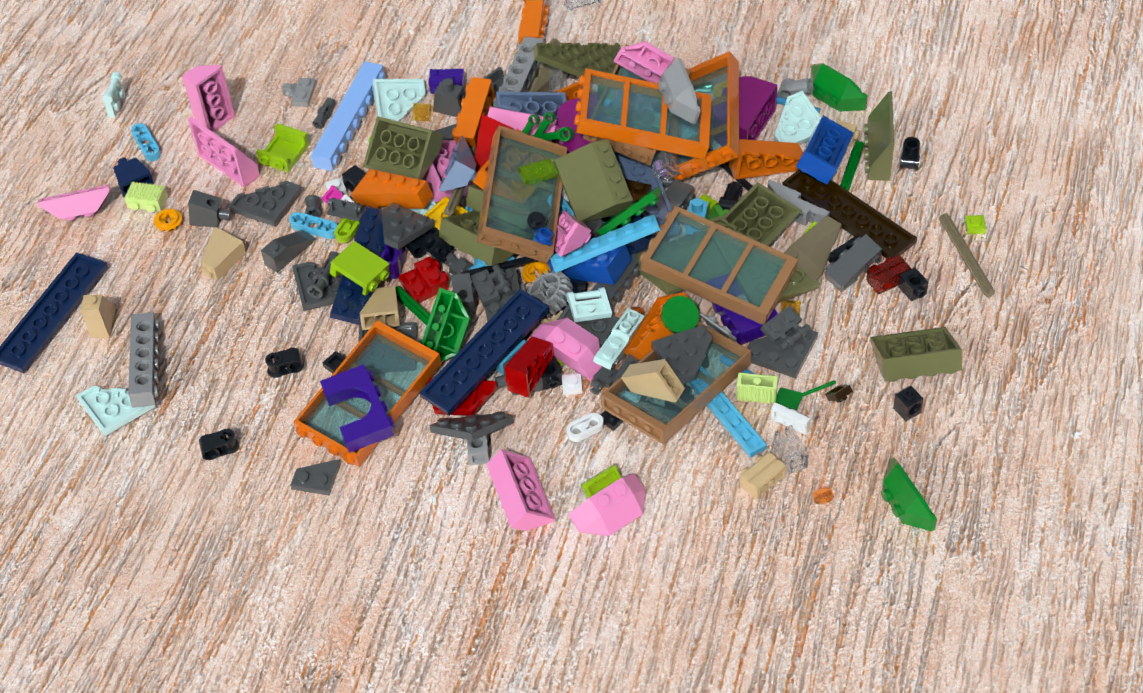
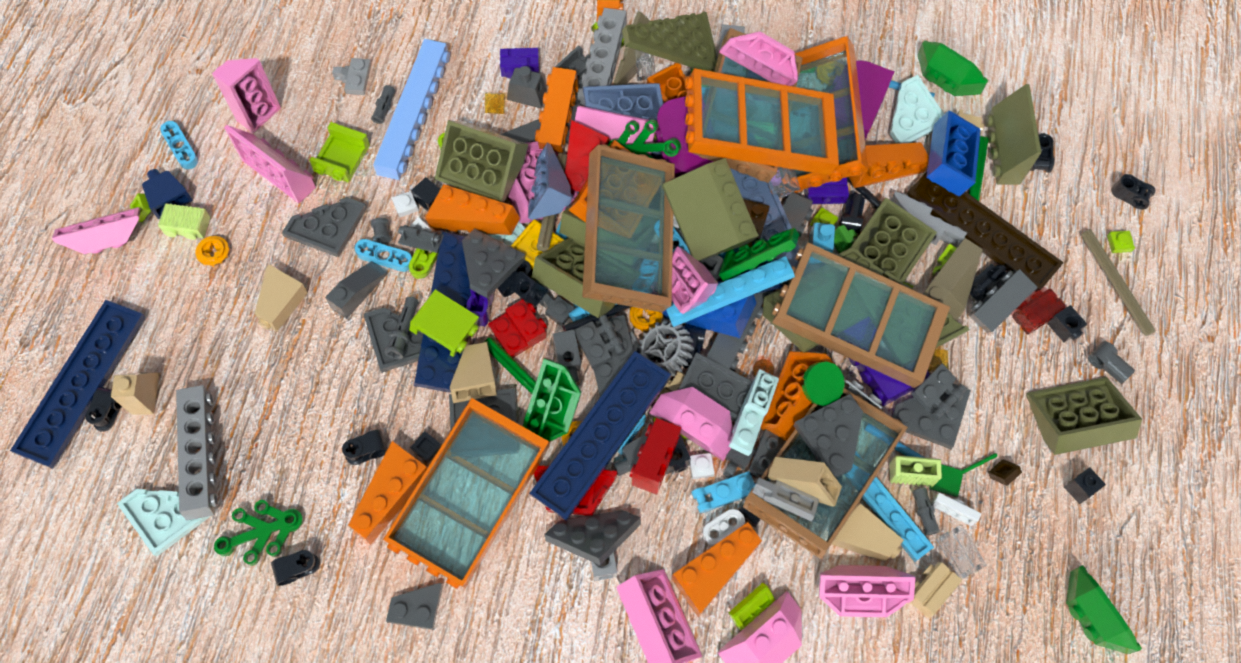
camera: 10 degrees left, 15 degrees up
(70, 330) = (102, 407): none -> black piece
(112, 180) = (141, 202): none -> lime plate
(114, 95) = (137, 85): light aqua plate -> none
(191, 420) = (262, 532): none -> green plant
(206, 210) = (256, 240): dark grey torso -> none
(297, 393) = (387, 492): none -> orange wedge
(332, 192) = (403, 217): dark pink plate -> none
(358, 384) = (484, 544): dark purple arch -> none
(396, 96) = (464, 86): light aqua plate -> none
(536, 220) = (650, 266): black plate -> none
(537, 171) = (646, 201): clear neon green plate -> none
(544, 236) = (660, 287): blue plate -> none
(574, 453) = (712, 570): none -> orange wedge
(586, 404) = (724, 492): none -> medium azure plate
(589, 309) = (716, 373): light aqua plate -> none
(635, 392) = (787, 498): none -> light grey hinge
(679, 91) = (803, 94): light grey wedge -> none
(699, 473) = (866, 590): none -> bright pink wedge
(708, 435) = (868, 536): none -> tan slope
(710, 181) = (828, 193): none -> dark purple brick
(764, 420) = (926, 511): none -> dark grey pin
(790, 87) = (907, 69): light grey piece -> none
(823, 496) = (1005, 615): clear orange tile -> none
(946, 311) = (1106, 358): none -> dark grey piece
(991, 184) = (1133, 190): none -> black piece

